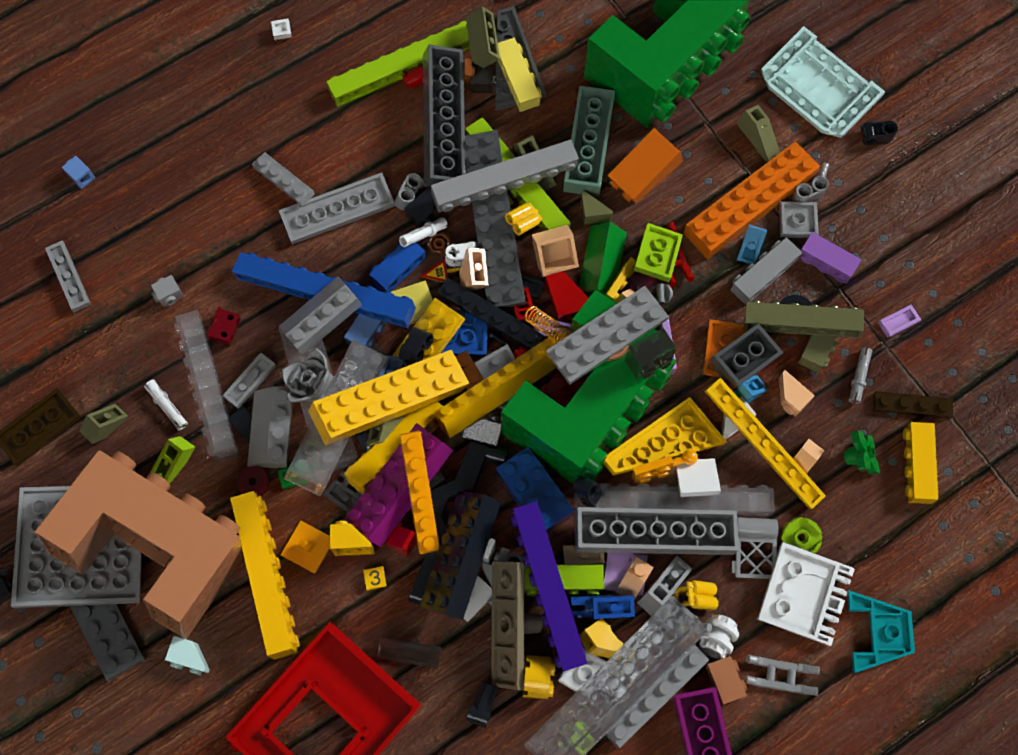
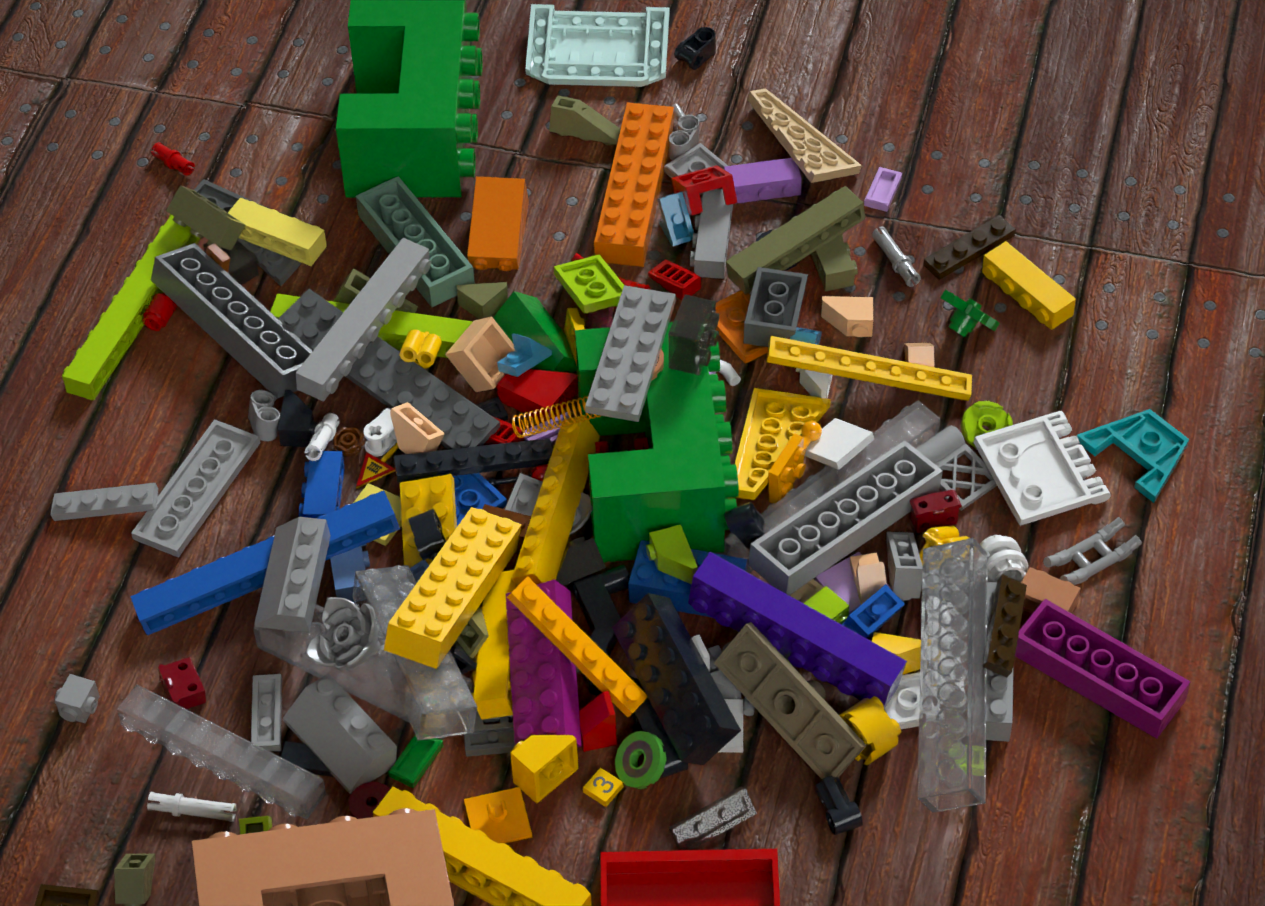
camera: 40 degrees left, 20 degrees down
(394, 584) = (627, 760): none -> bright green tile
(530, 474) = (672, 553): none -> lime slope
(574, 272) = (526, 355): none -> dark azure slope
(672, 685) = (1004, 626): none -> dark brown plate
(687, 368) = (729, 373): none -> white arm
(715, 297) = (691, 281): none -> red slope
(715, 568) = (935, 510): none -> dark red piece
(786, 235) = (702, 181): none -> red panel
(878, 257) = (807, 146): none -> tan wing

